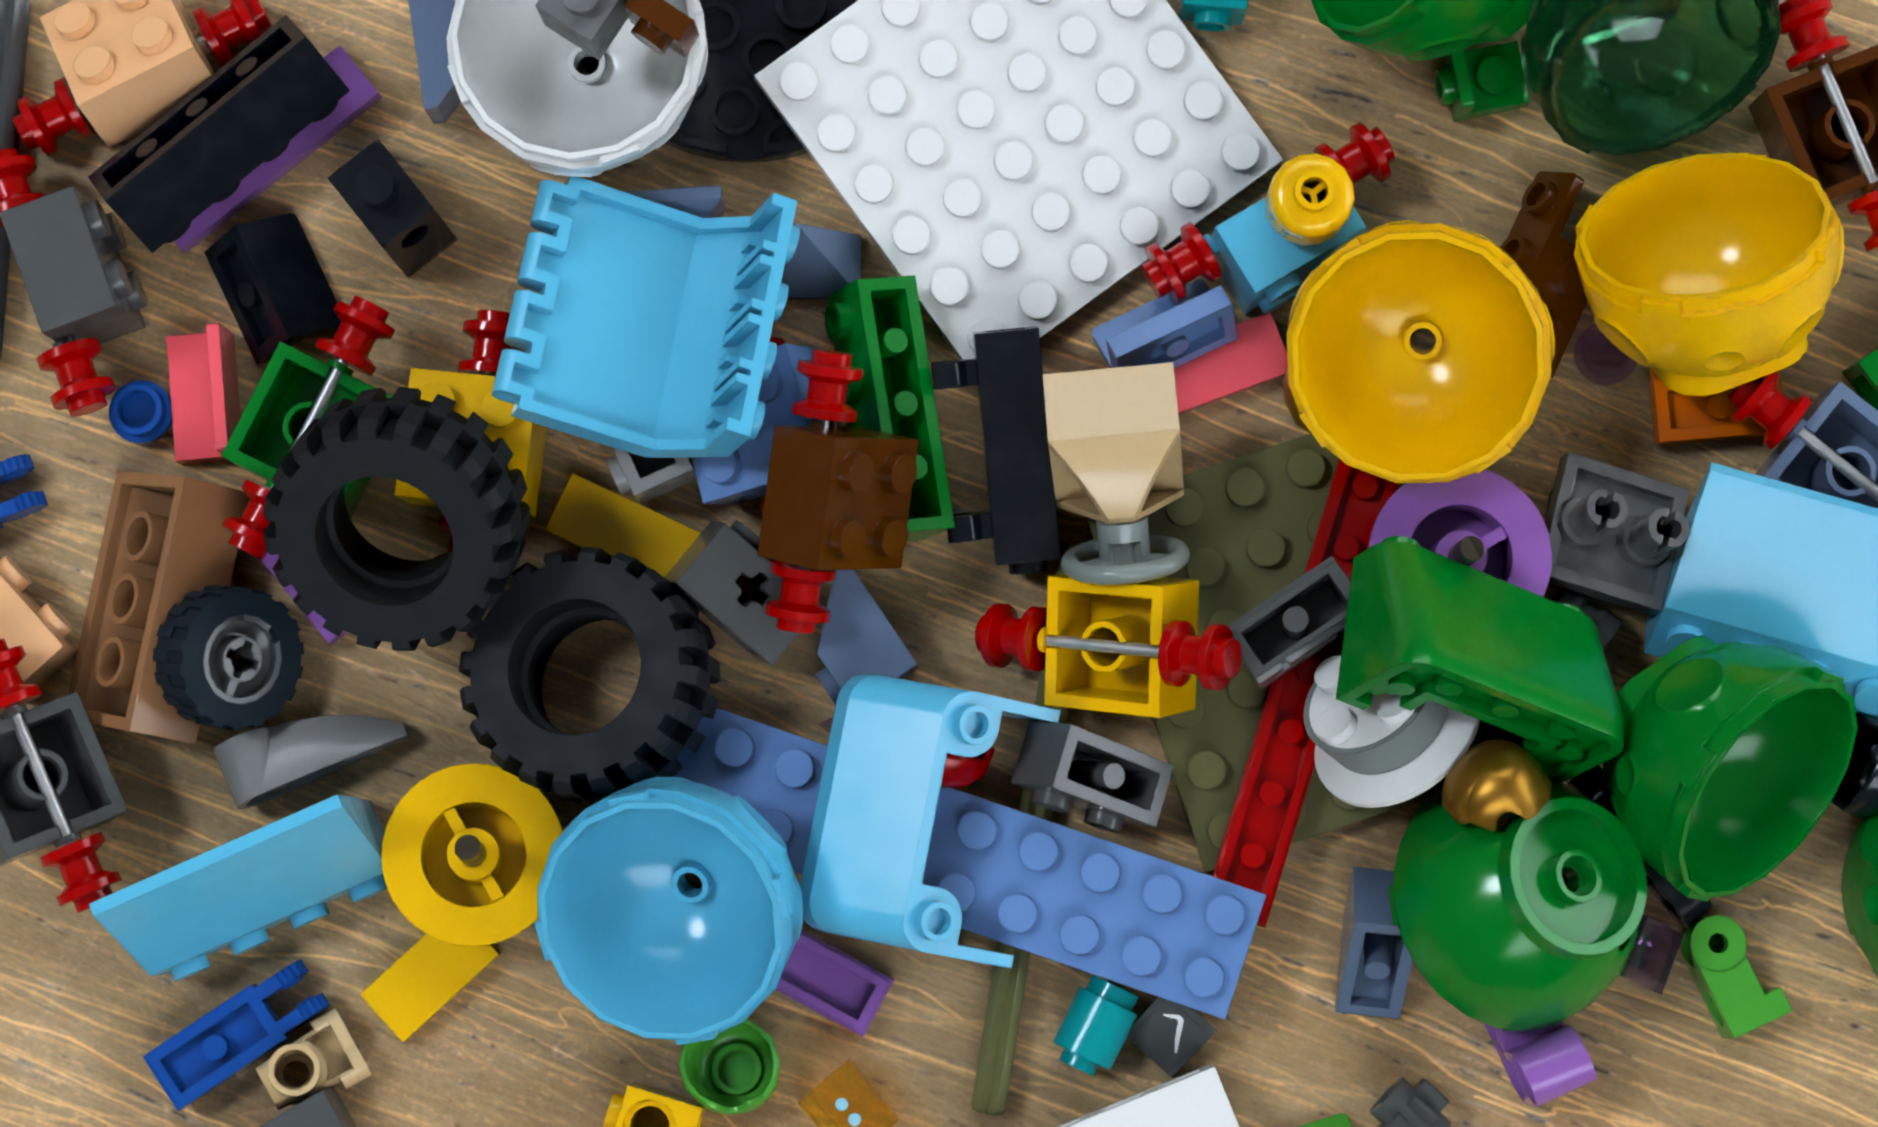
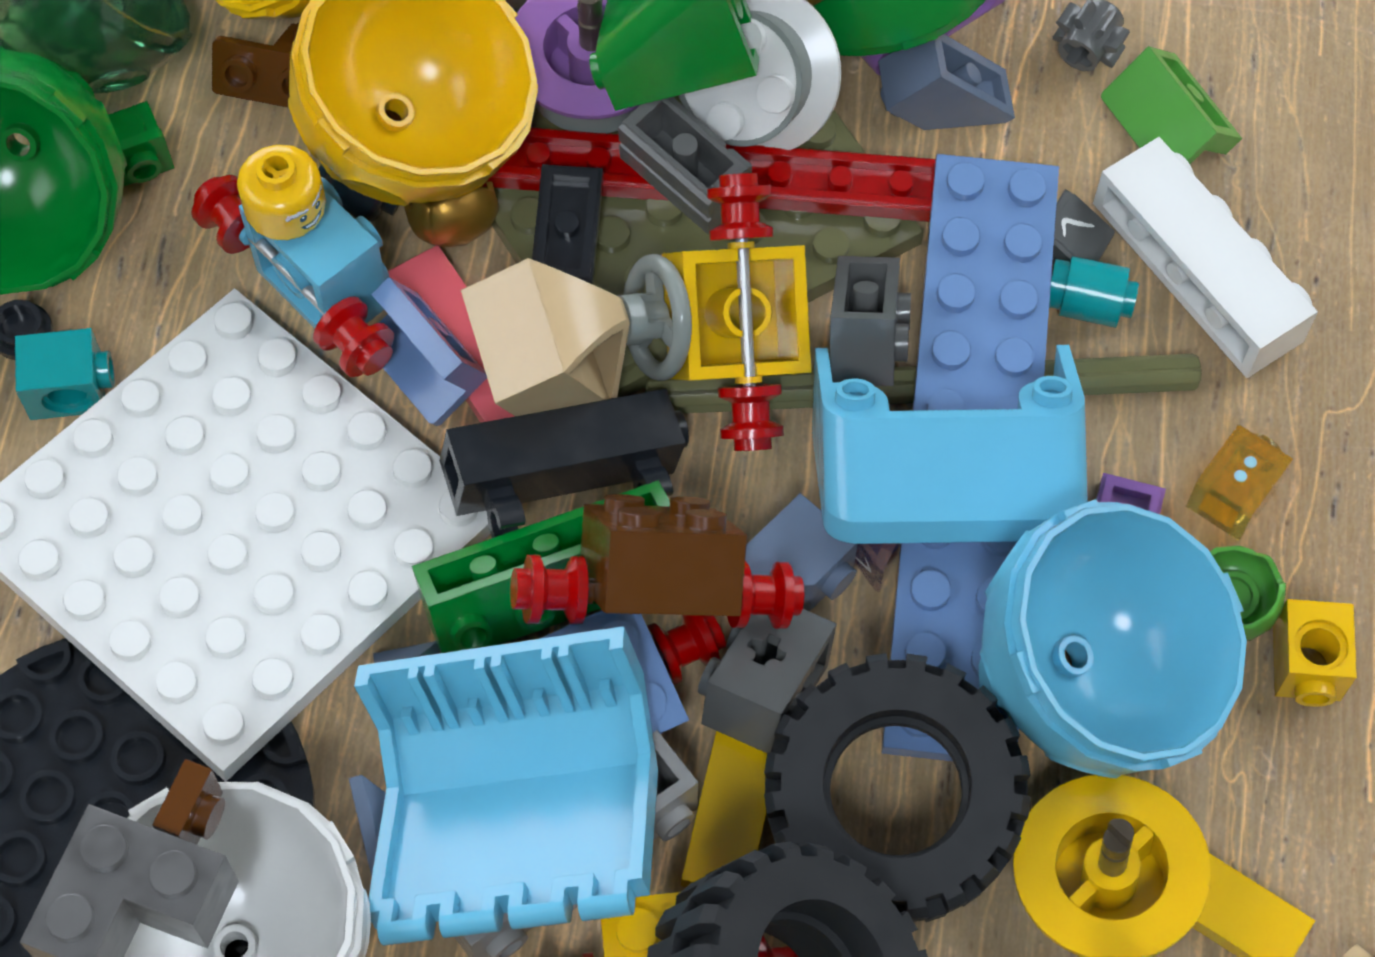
camera: 105 degrees left, 20 degrees down
(1266, 497) = (569, 219): none -> black plate

